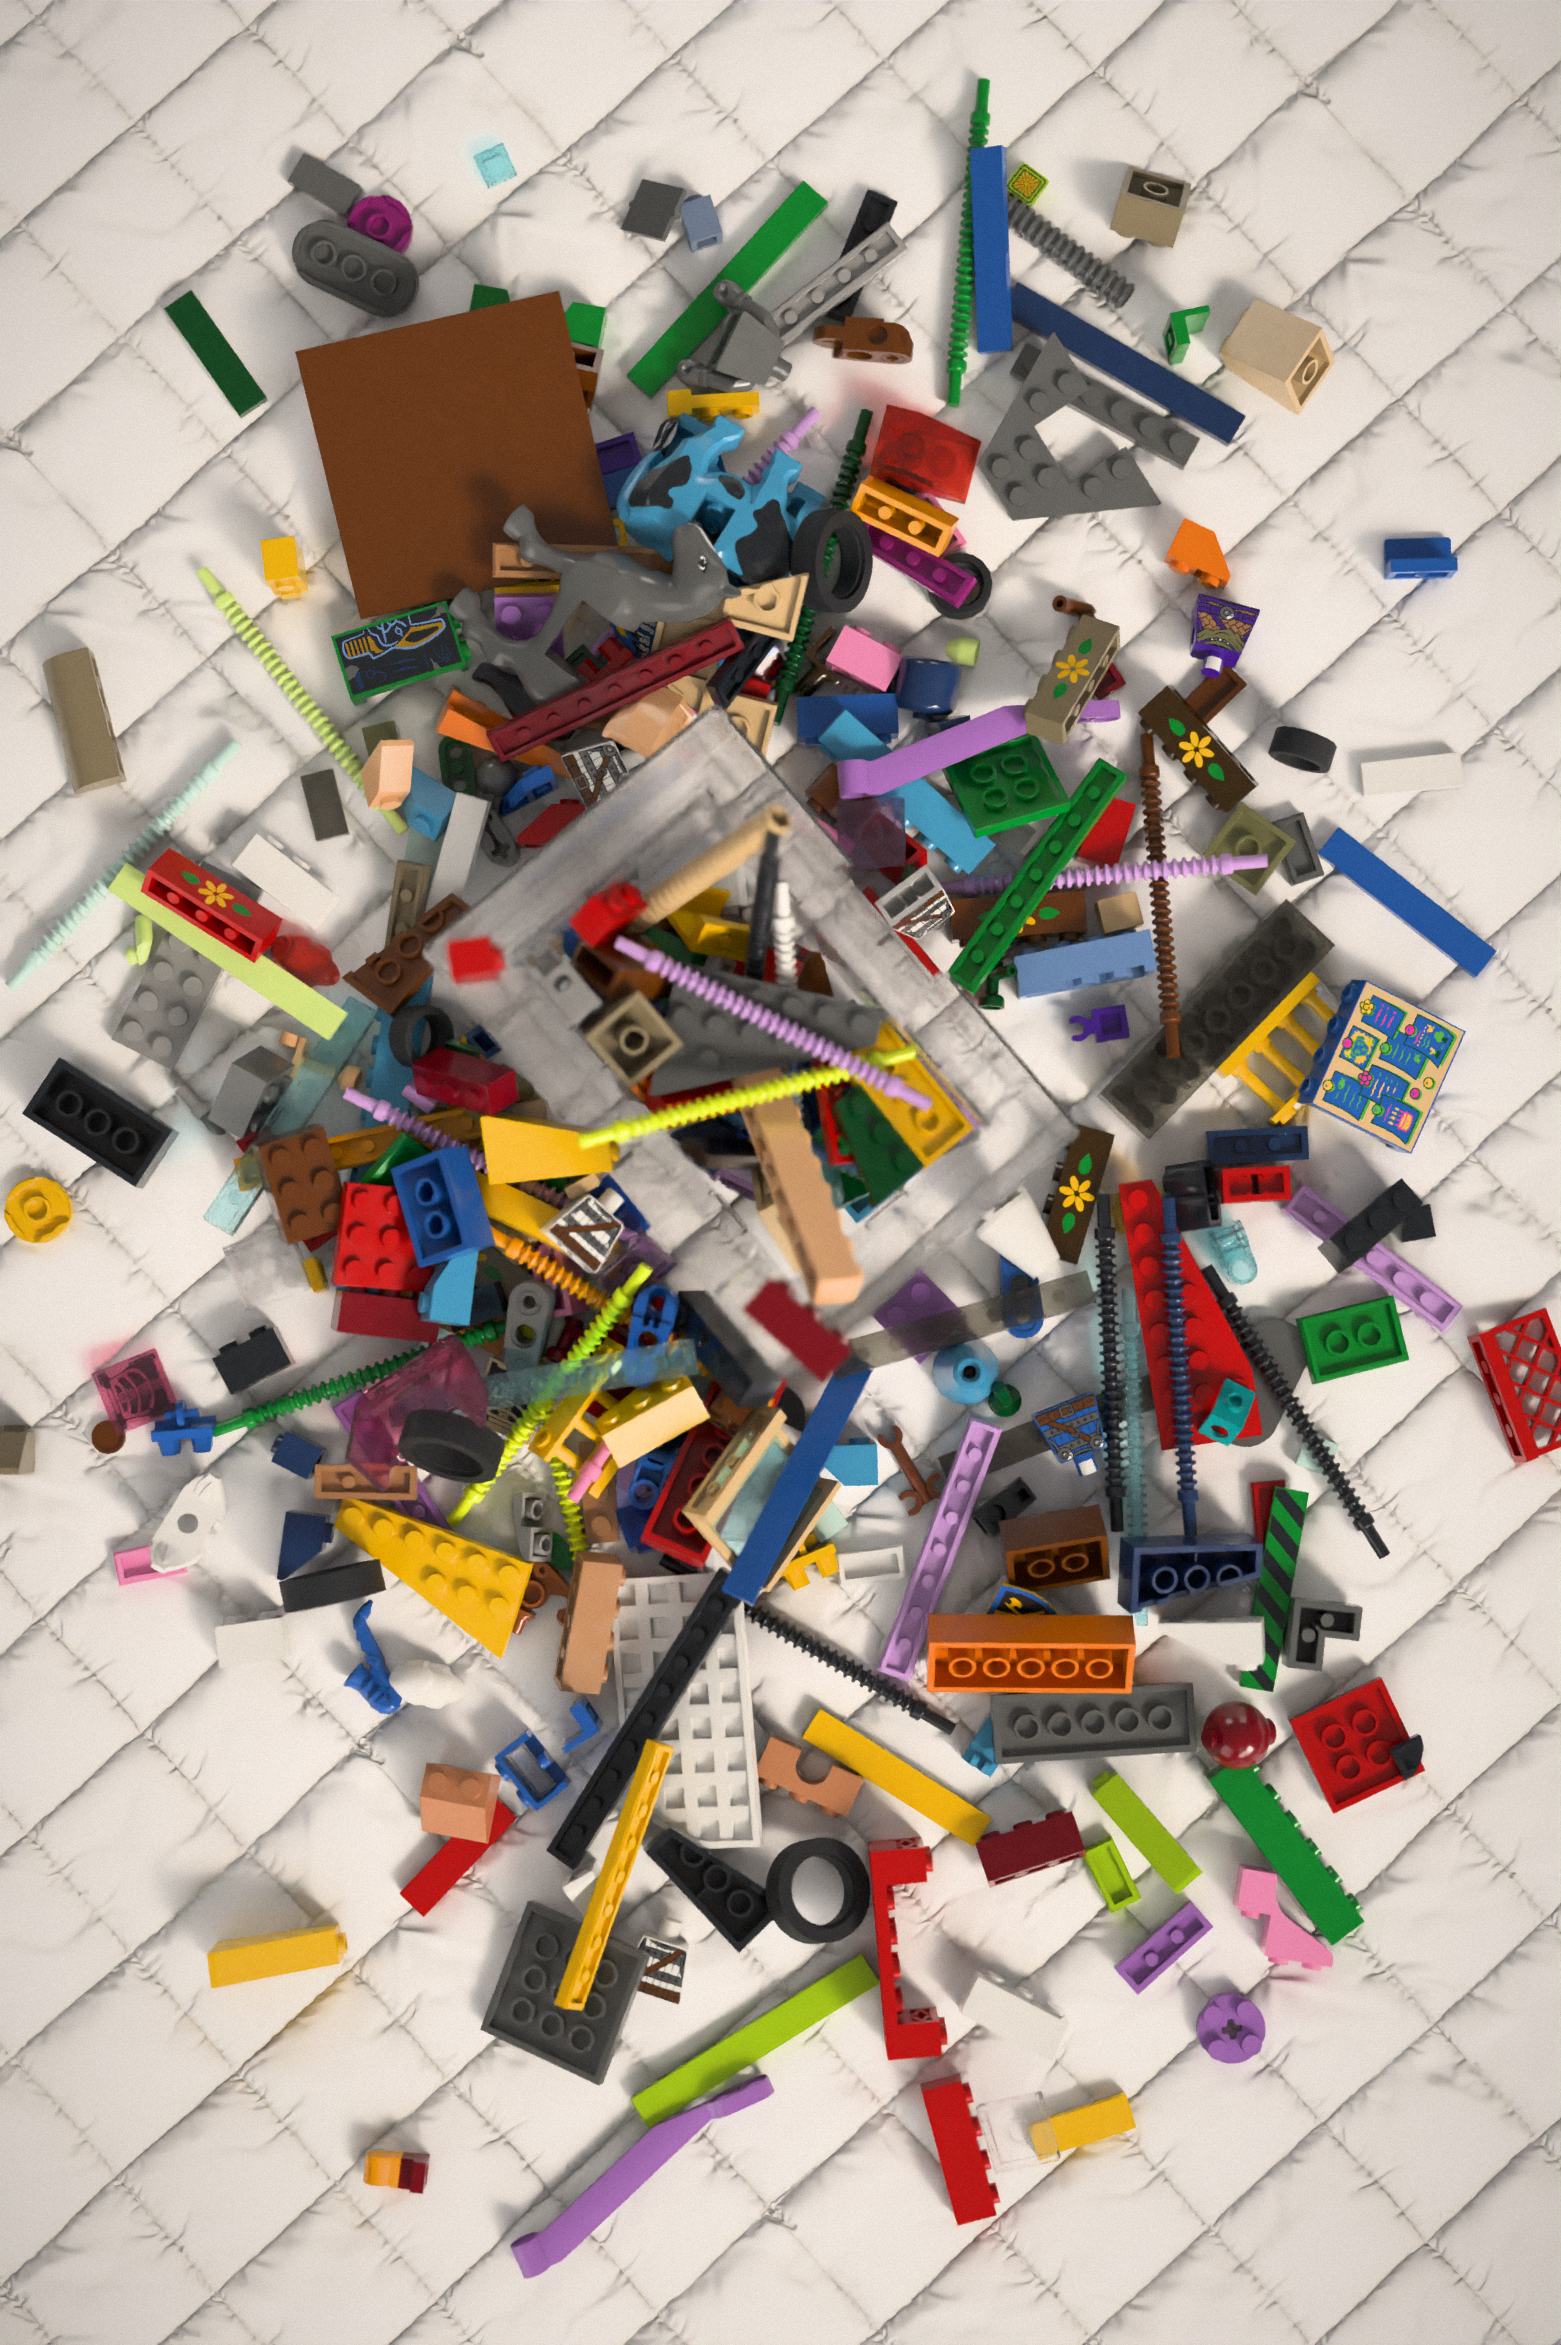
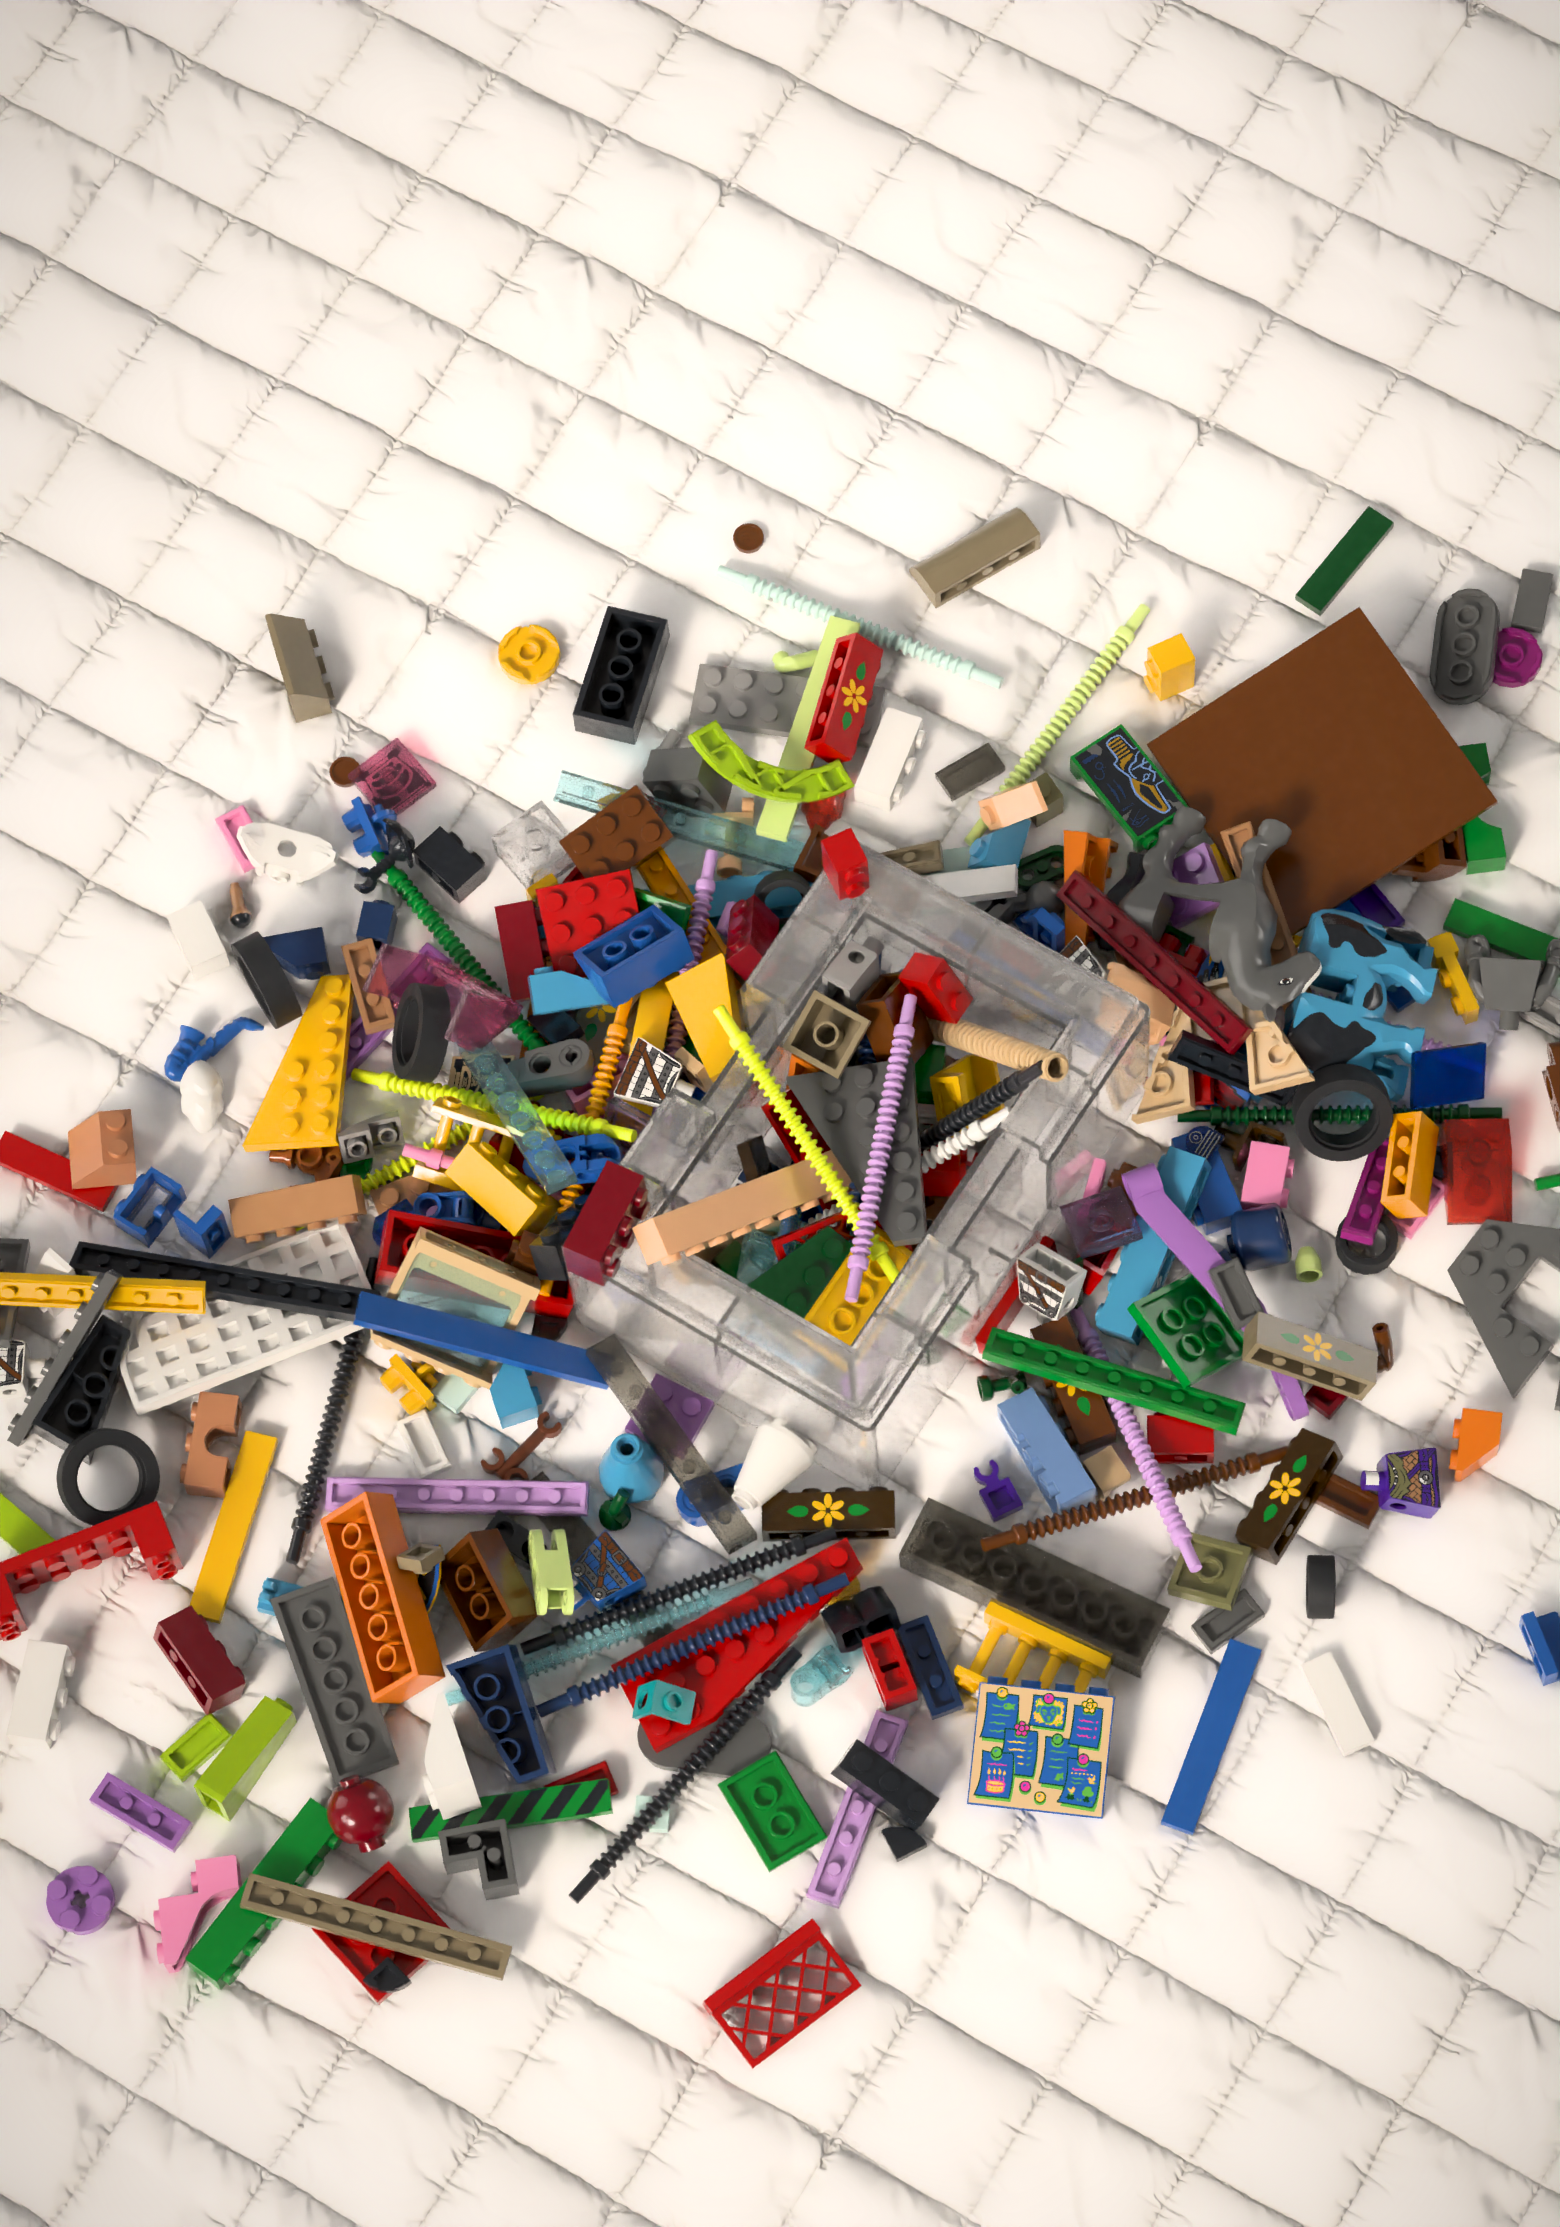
camera: 80 degrees right, 20 degrees down
(223, 1406) = (400, 848): none -> black piece
(236, 1589) = (240, 915): none -> medium nougat piece
(282, 1012) = (766, 779): none -> lime tile
(672, 1894) = (70, 1343): none -> dark grey plate
(817, 707) = (1204, 1142): none -> clear blue tile
(821, 446) = (1447, 1075): none -> clear blue piece
(990, 727) = (1235, 1292): none -> dark grey tile
(1012, 1606) = (420, 1558): none -> dark tan plate
(1062, 1482) = (551, 1572): none -> yellowish green piece
(1360, 1754) = (376, 1926): none -> dark tan plate

